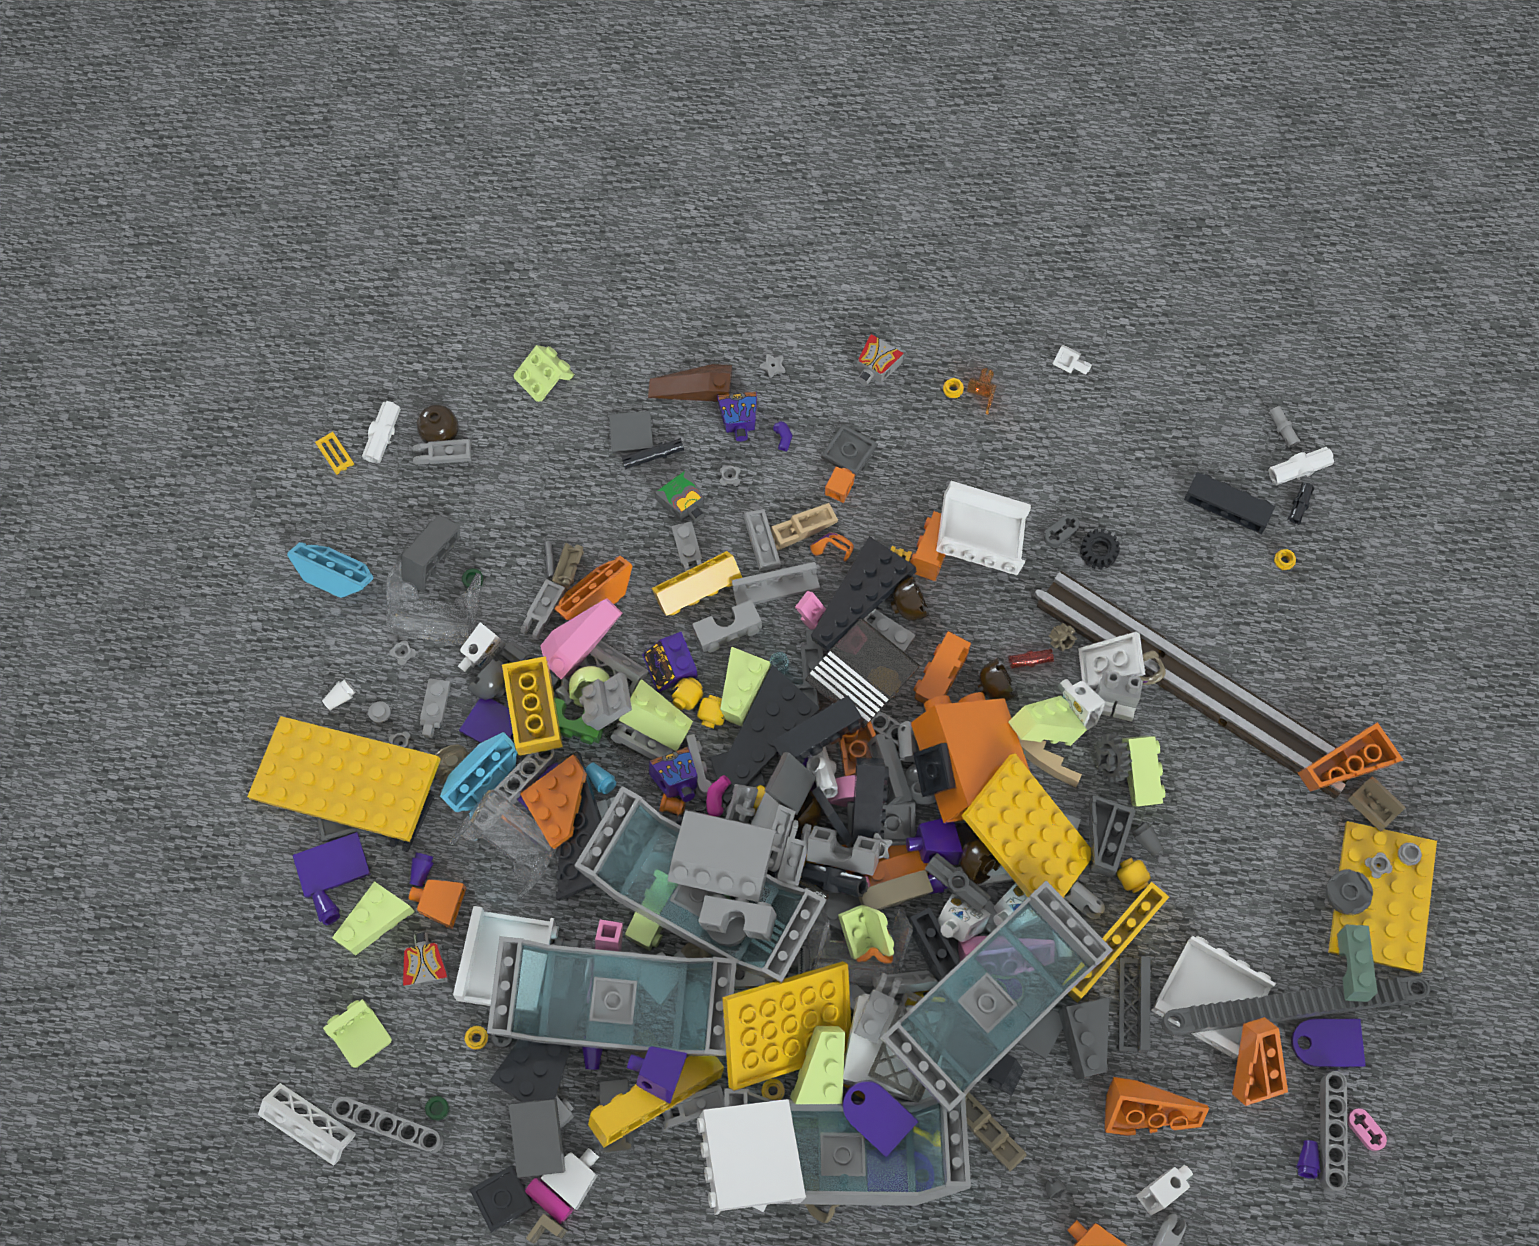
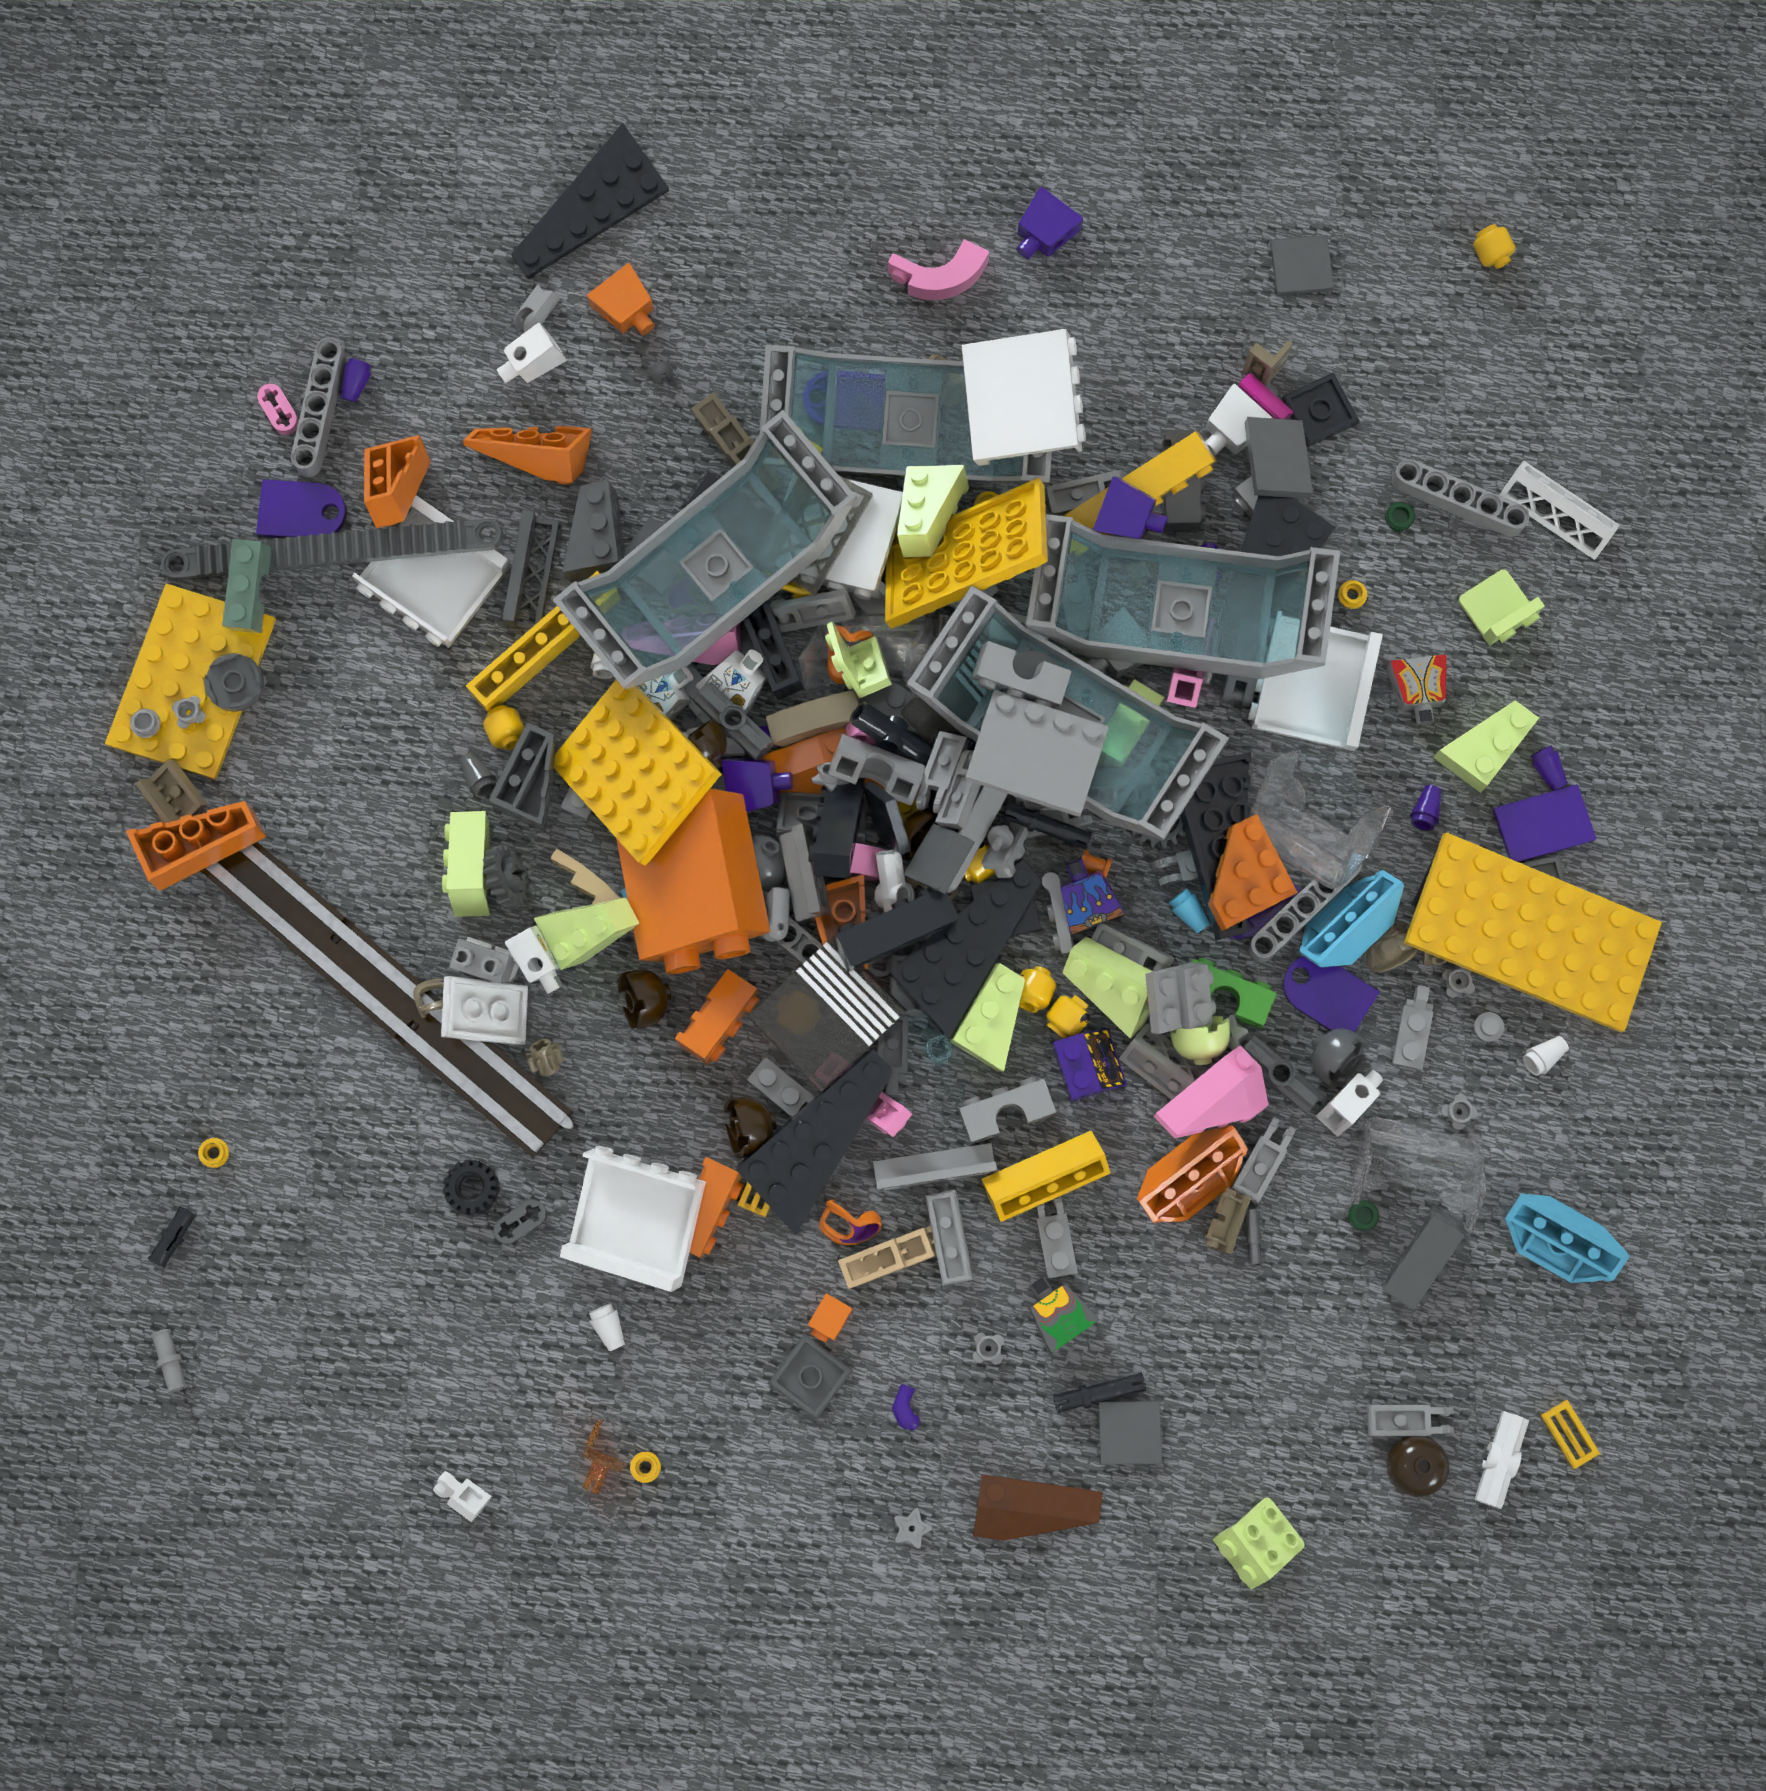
camera: 175 degrees left, 10 degrees up
(439, 900) = (1402, 762): orange torso -> none
(532, 706) = (1280, 998): yellow brick -> none
(714, 796) = (1038, 866): dark pink arm -> none
(738, 413) = (968, 1445): torso -> none
(877, 360) = (754, 1519): torso -> none
(877, 1010) = (853, 567): light grey hinge -> none
(879, 1116) = (863, 450): dark purple tile -> none
(934, 770) = (747, 853): black tile -> none
(991, 469) = (607, 1326): none -> white cone
(1031, 658) = (592, 1034): clear red pin -> none
(1085, 901) = (569, 700): light grey piece -> none
(1229, 502) = (274, 1243): black brick -> none
(1301, 465) = (158, 1293): white piece -> none

